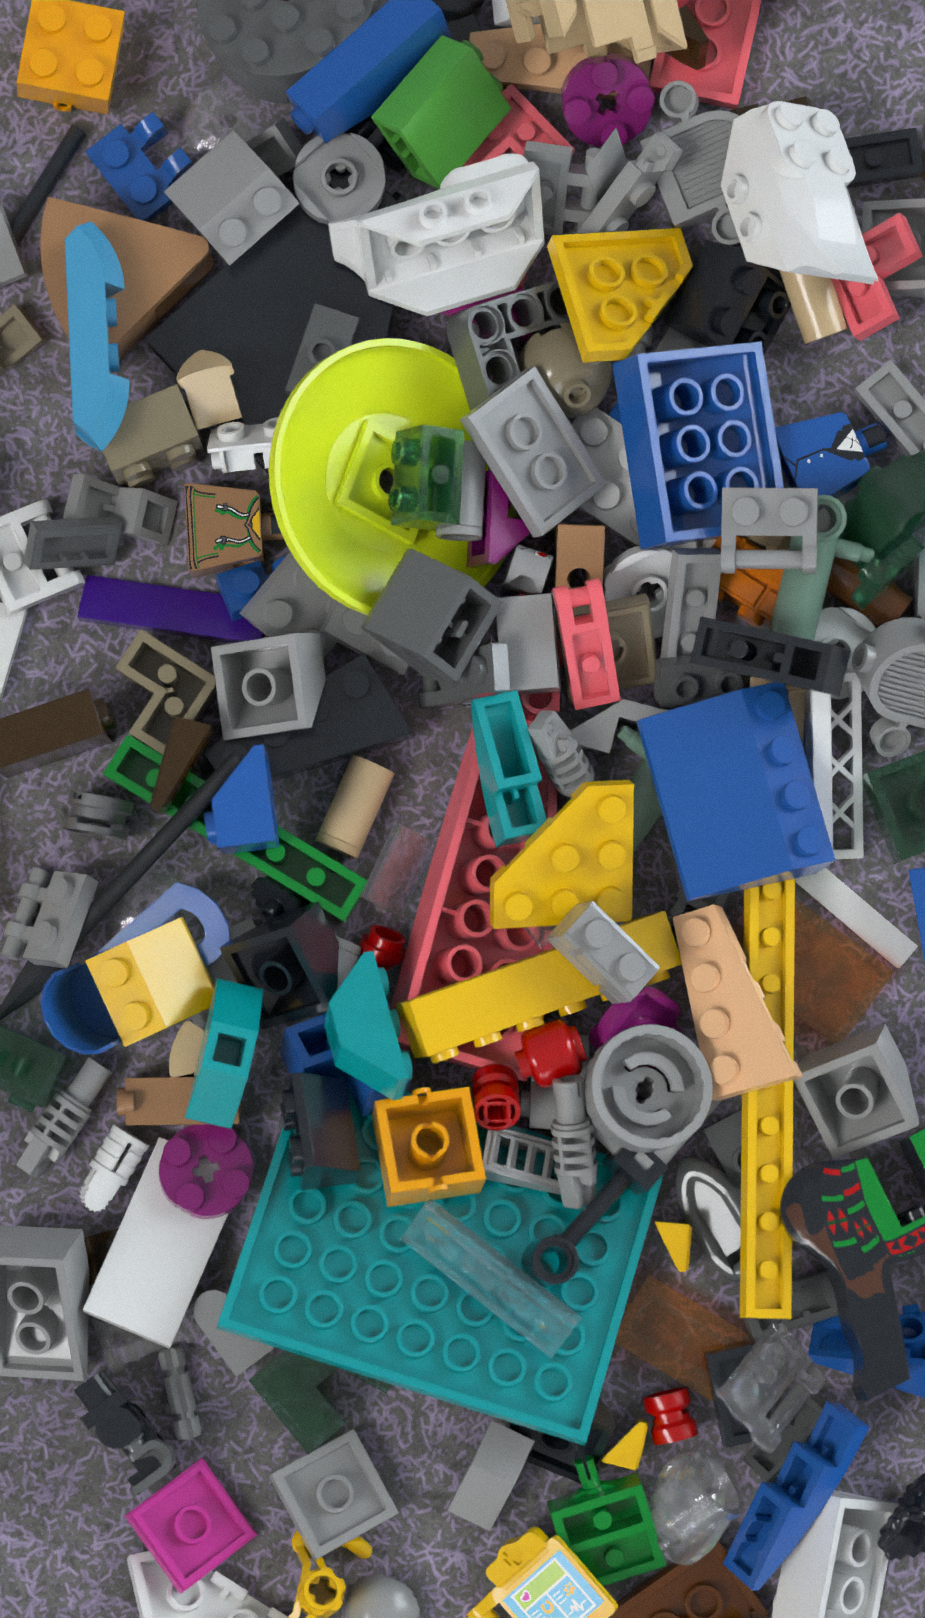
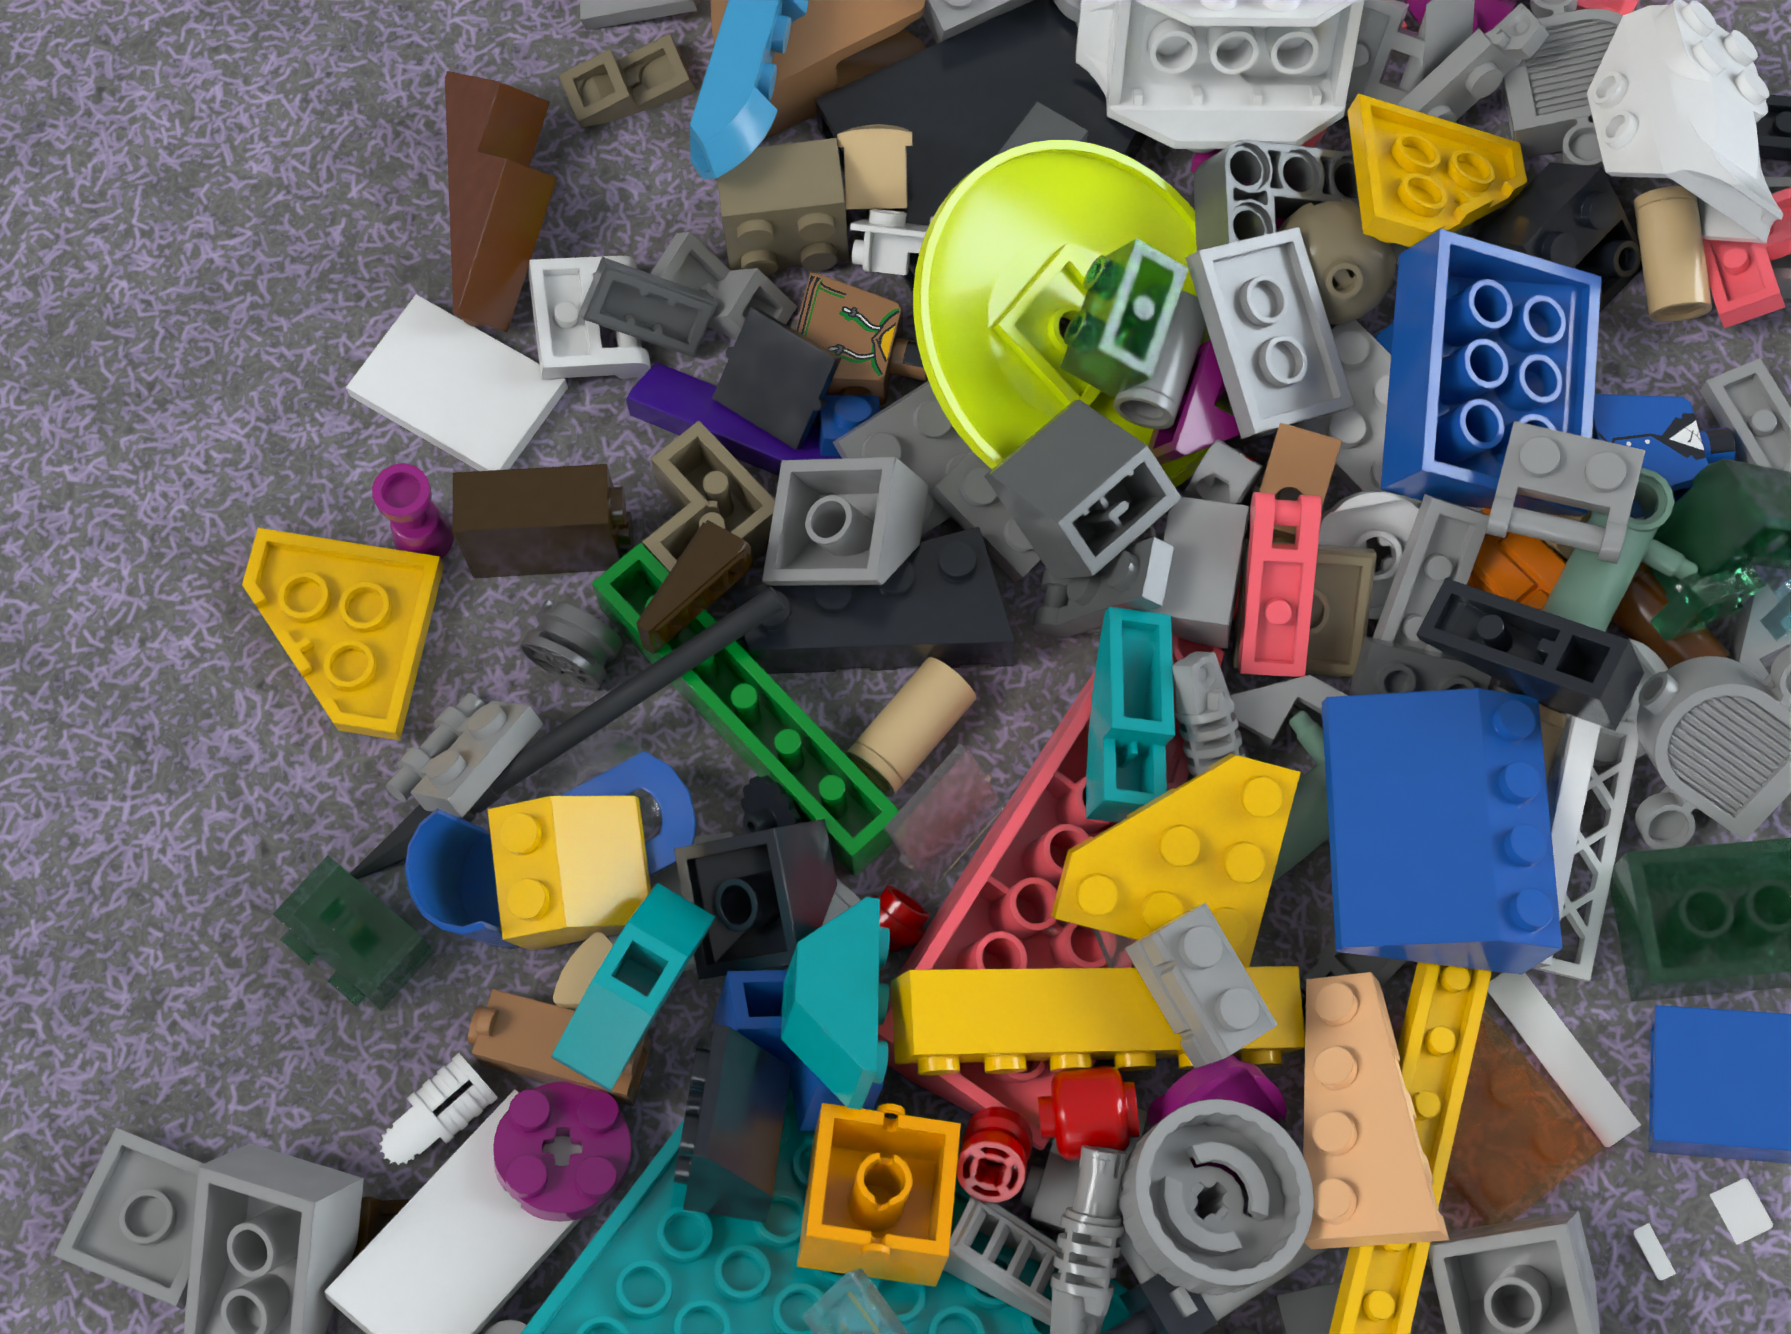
camera: 20 degrees right, 15 degrees down
(62, 1119) = (392, 1030): light grey hinge -> none
(184, 575) = (776, 378): none -> black piece
(245, 808) = (761, 657): blue slope -> none

